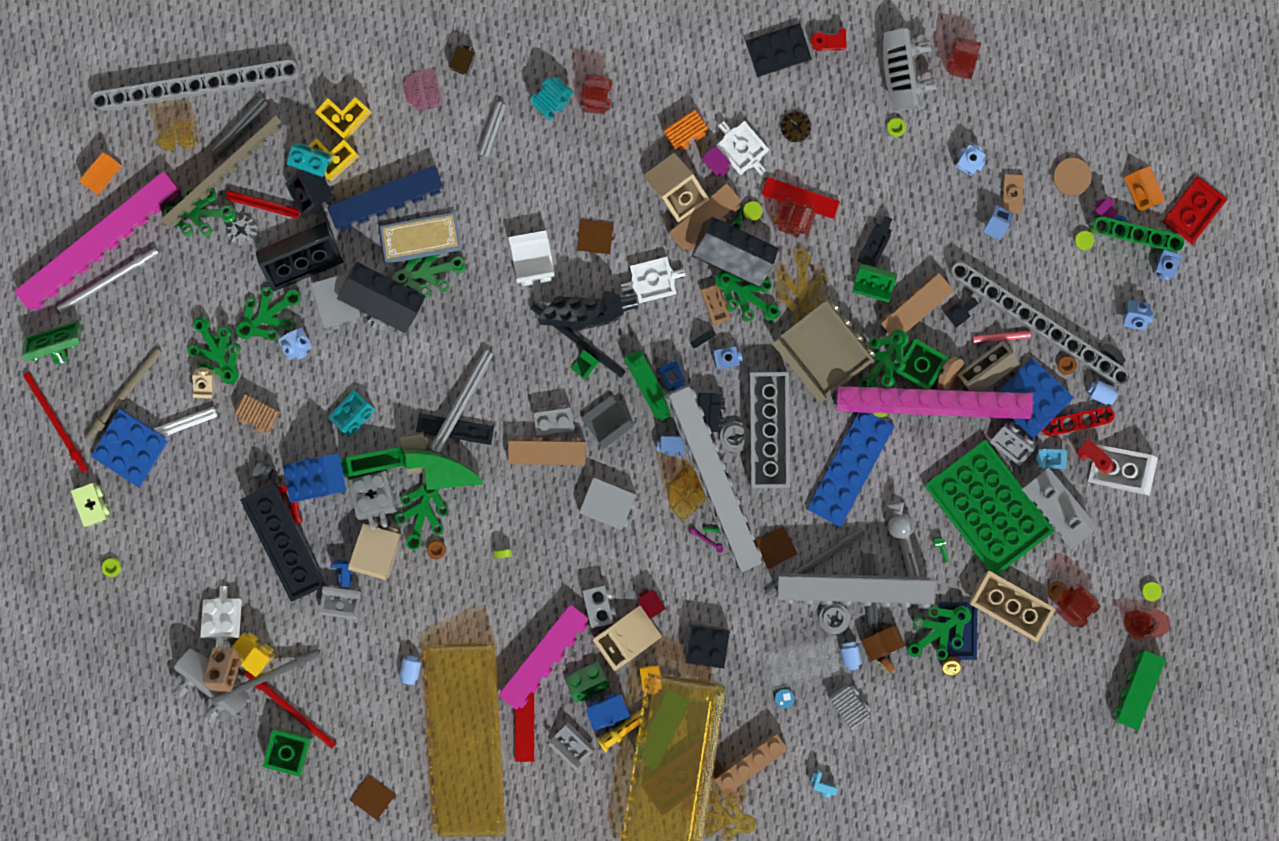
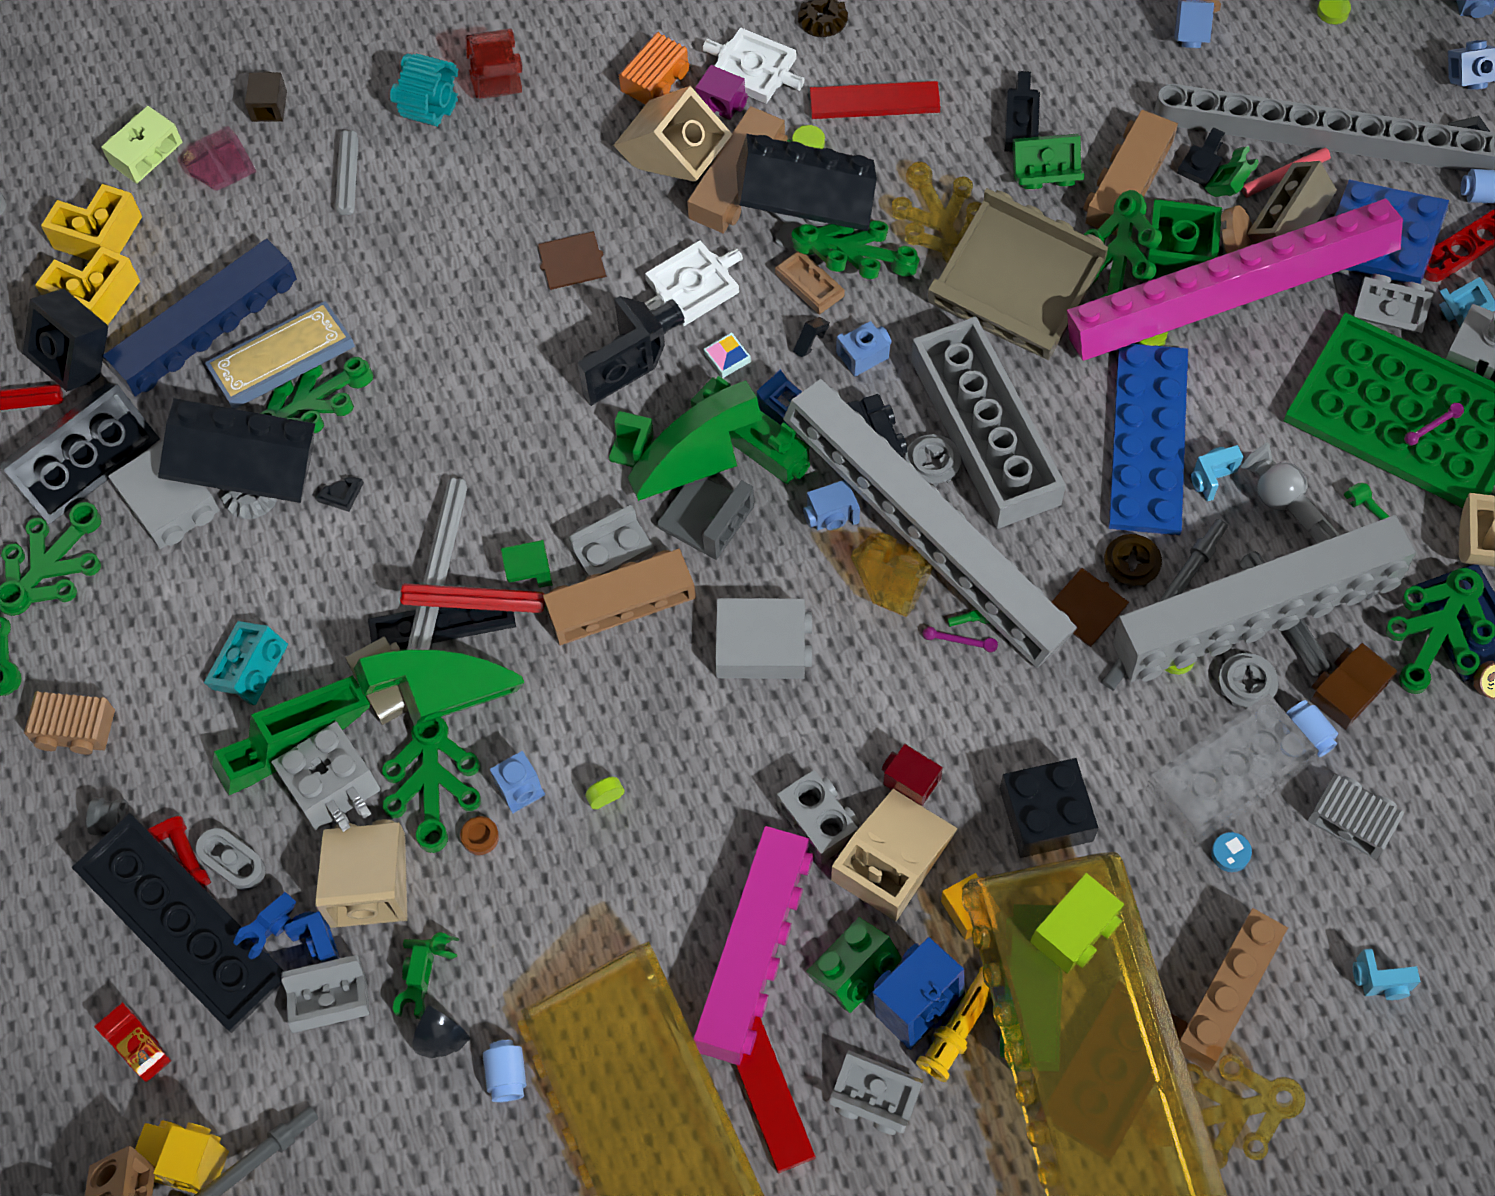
camera: 20 degrees left, 25 degrees down
(221, 618) = (96, 1112): white plate -> none
(247, 591) = (133, 1042): none -> red leg
(295, 344) = (108, 582): light blue brick -> none
(309, 159) = (46, 277): teal bracket -> none
(314, 478) = (205, 777): blue brick -> none
(316, 515) = (232, 860): none -> light grey plate
(326, 557) = (268, 922): none -> blue plate
(384, 607) = (417, 974): none -> green plate
(386, 642) = (438, 1035): none -> black brick
(394, 65) = (142, 144): none -> yellowish green brick
(398, 596) = (436, 944): none -> green hand
(427, 334) = (341, 494): none -> black tile
(463, 532) = (517, 781): none -> medium blue brick
(473, 428) = (472, 598): none -> red axle
(506, 417) = (527, 562): none -> green panel
(532, 258) = (476, 318): white panel -> none
(571, 311) = (572, 351): black plate -> none
(584, 345) = (540, 396): black bar -> none
(615, 386) = (695, 442): none -> green slope
(654, 331) = (727, 355): none -> tile
(688, 719) = (1077, 924): none -> lime brick
(794, 218) = (878, 117): clear red brick -> none
(810, 542) = (1145, 552): none -> dark brown gear
(875, 498) = (1214, 465): none -> medium azure bracket
(886, 664) = (1380, 720): dark orange tile -> none
(969, 330) = (1231, 177): none -> green plate
(1010, 519) = (1455, 411): none -> magenta hinge
(1066, 365) = (1408, 173): dark orange tile -> none

